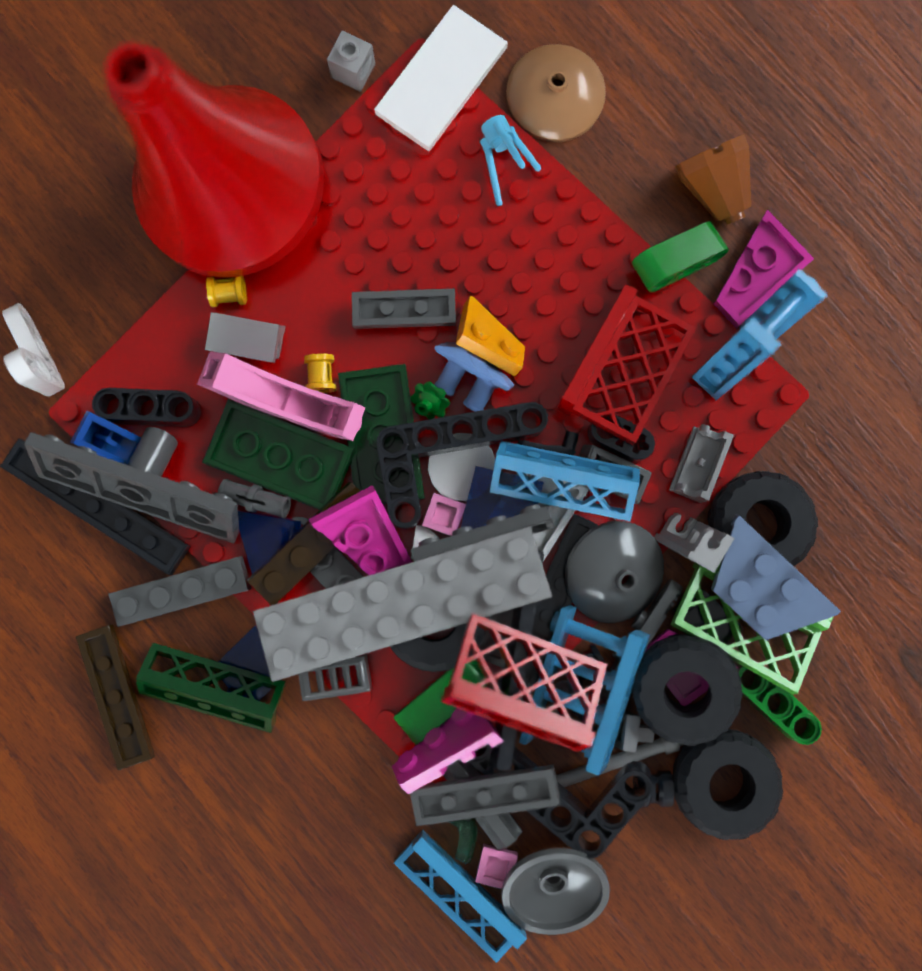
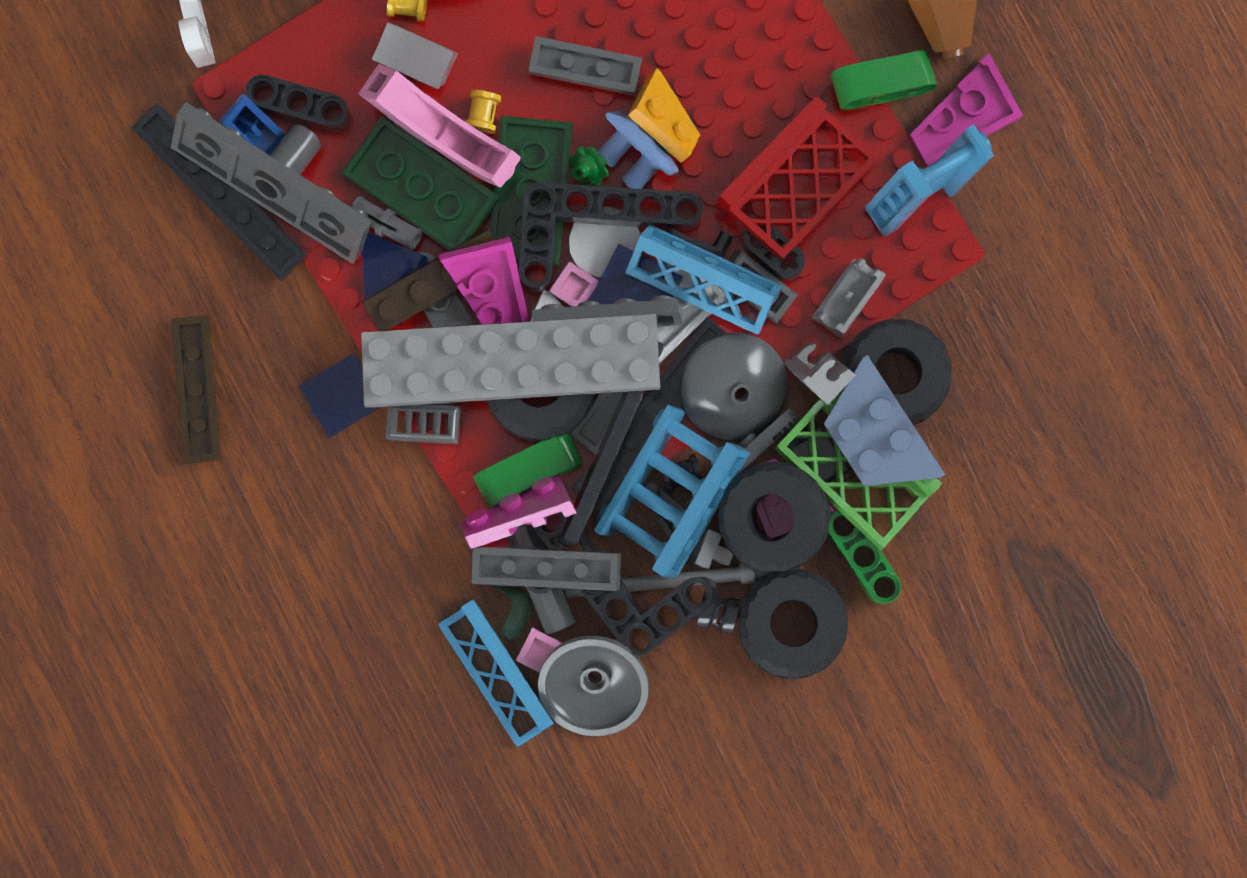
camera: 15 degrees right, 0 degrees up
(180, 591) = (287, 299): dark grey plate -> none
(205, 699) = (290, 409): dark green fence -> none
(516, 713) = (603, 492): fence -> none

